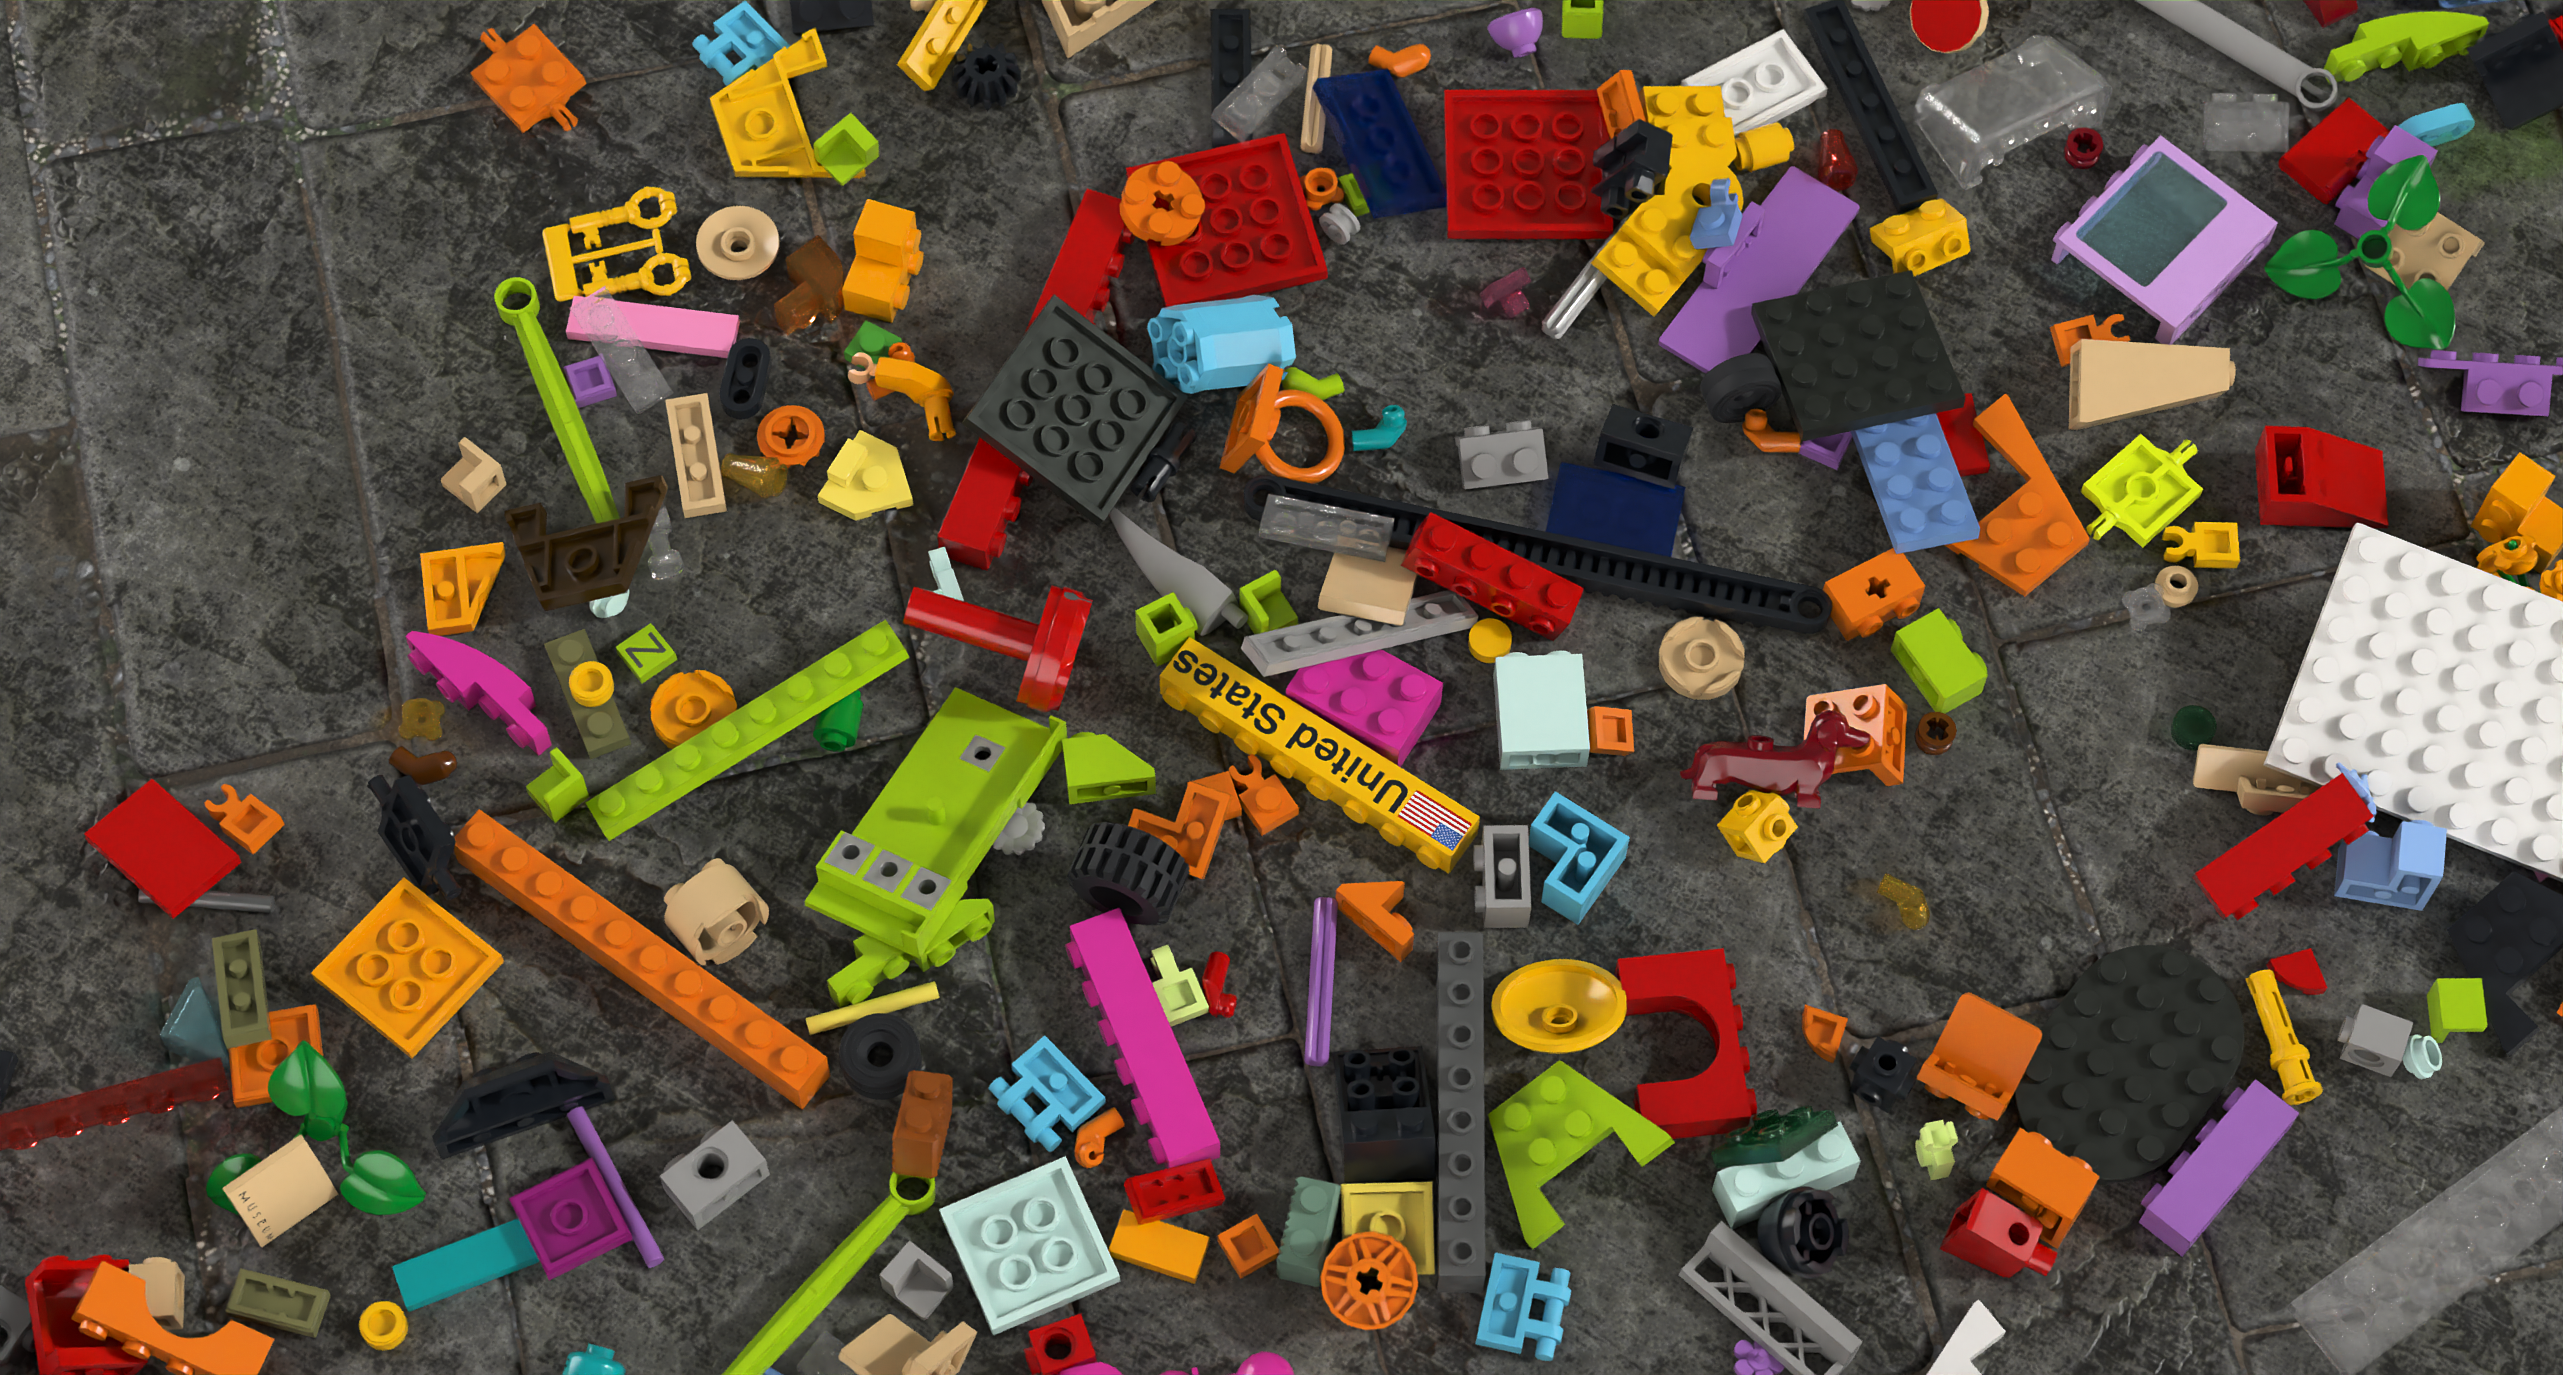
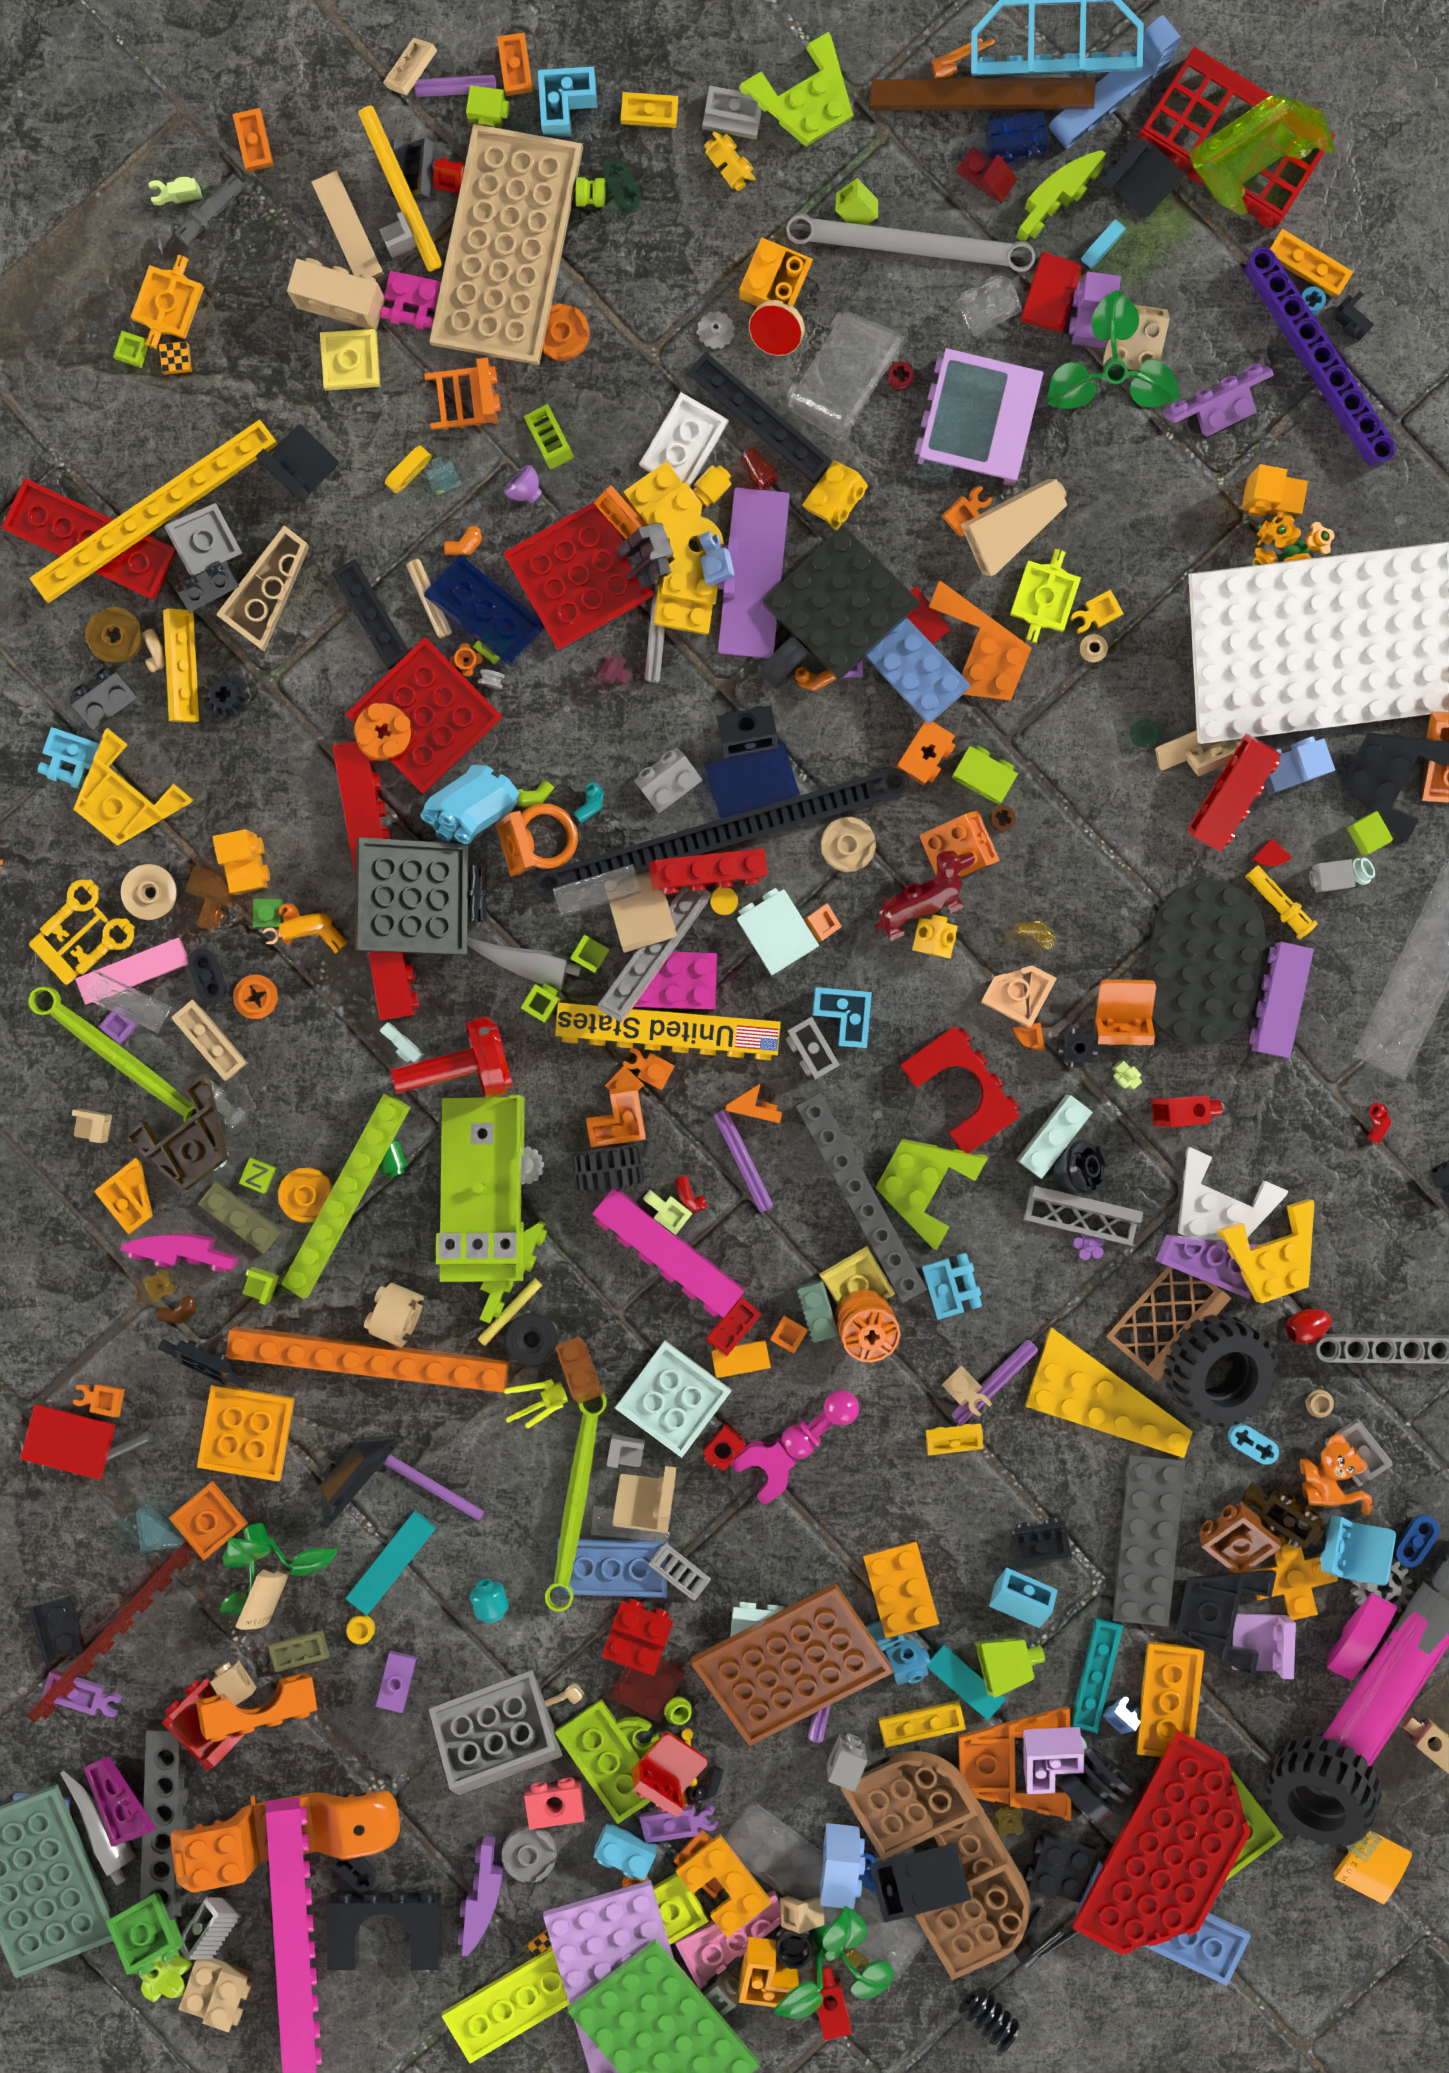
camera: 25 degrees left, 25 degrees up
(241, 989) = (166, 1499): olive plate -> none
(570, 1218) = (423, 1522): magenta tile -> none
(591, 684) = (241, 1217): yellow tile -> none
(706, 1198) = (477, 1471): light grey brick -> none
(757, 473) = (251, 1032): clear yellow cone -> none
(846, 149) = (175, 798): lime panel -> none
(860, 1145) = (552, 1397): none -> neon yellow plant
(865, 479) = (315, 998): light yellow plate -> none
(1057, 1084) = (635, 1301): medium azure plate -> none
(1091, 1137) = (671, 1319): orange arm -> none
(1103, 769) = (552, 1105): lime slope -> none
(1259, 94) = (395, 619): clear plate -> none
(1384, 1114) = (819, 1218): black slope -> none
(1559, 1006) = (875, 1097): yellow dish -> none
(1773, 1137) = (1041, 1126): clear green tile -> none
(1838, 965) = (1019, 994): none -> light nougat plate
(2043, 1183) = (1199, 1072): orange brick -> none
(2136, 599) = (1083, 679): clear plate -> none
(2318, 480) = (1145, 534): red slope -> none
(2361, 787) = (1263, 736): light blue piece -> none

